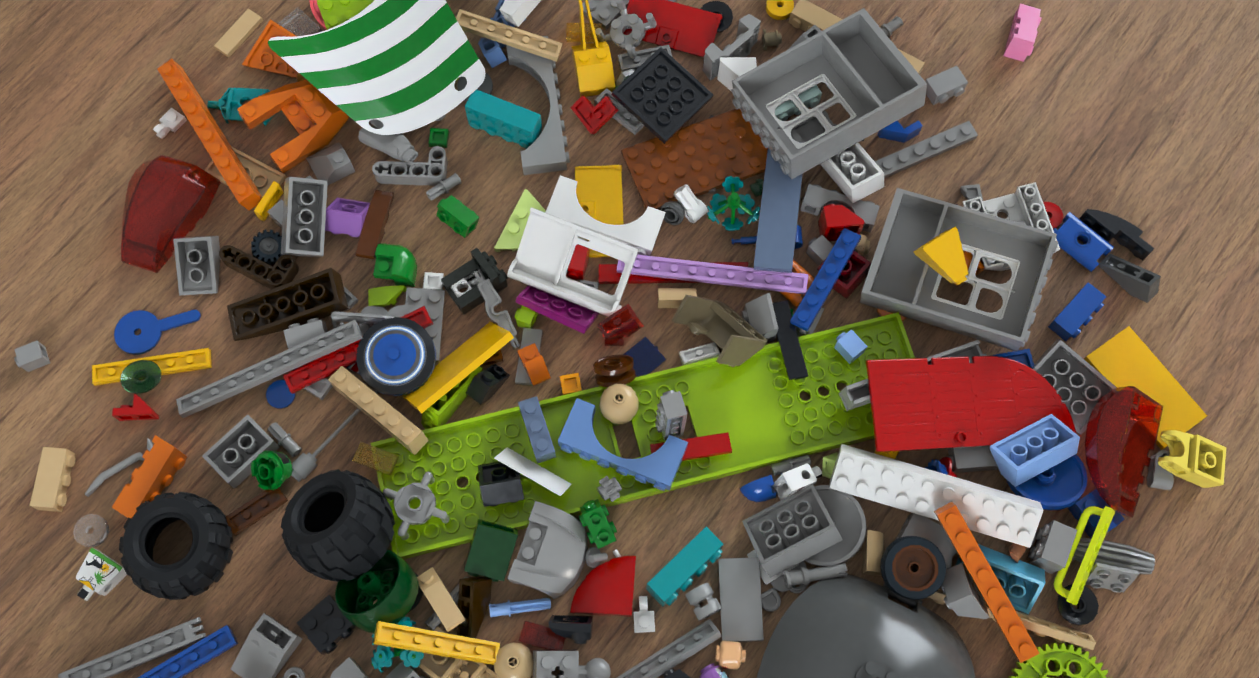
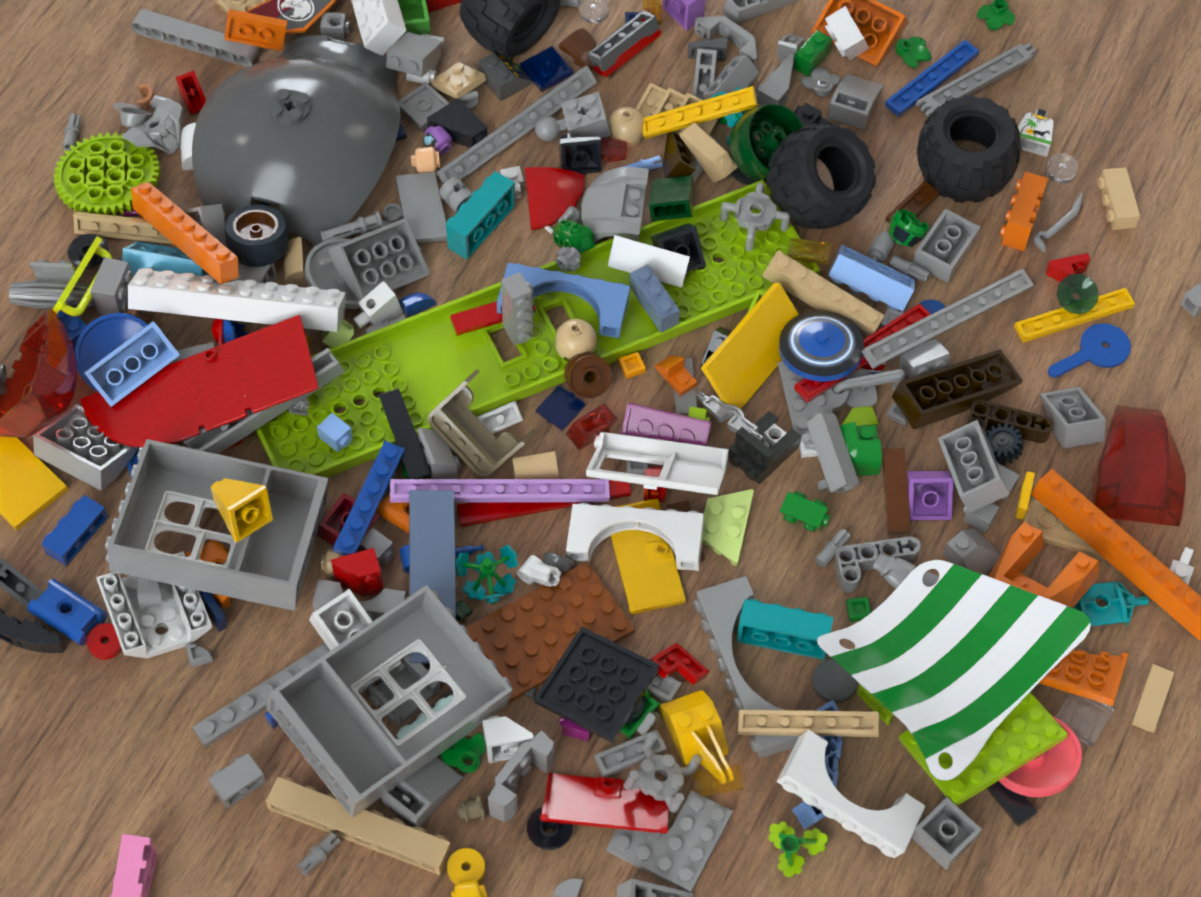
camera: 170 degrees right, 10 degrees down
(323, 427) = (871, 278): none -> light blue slope
(420, 254) = (832, 453): none -> light grey brick

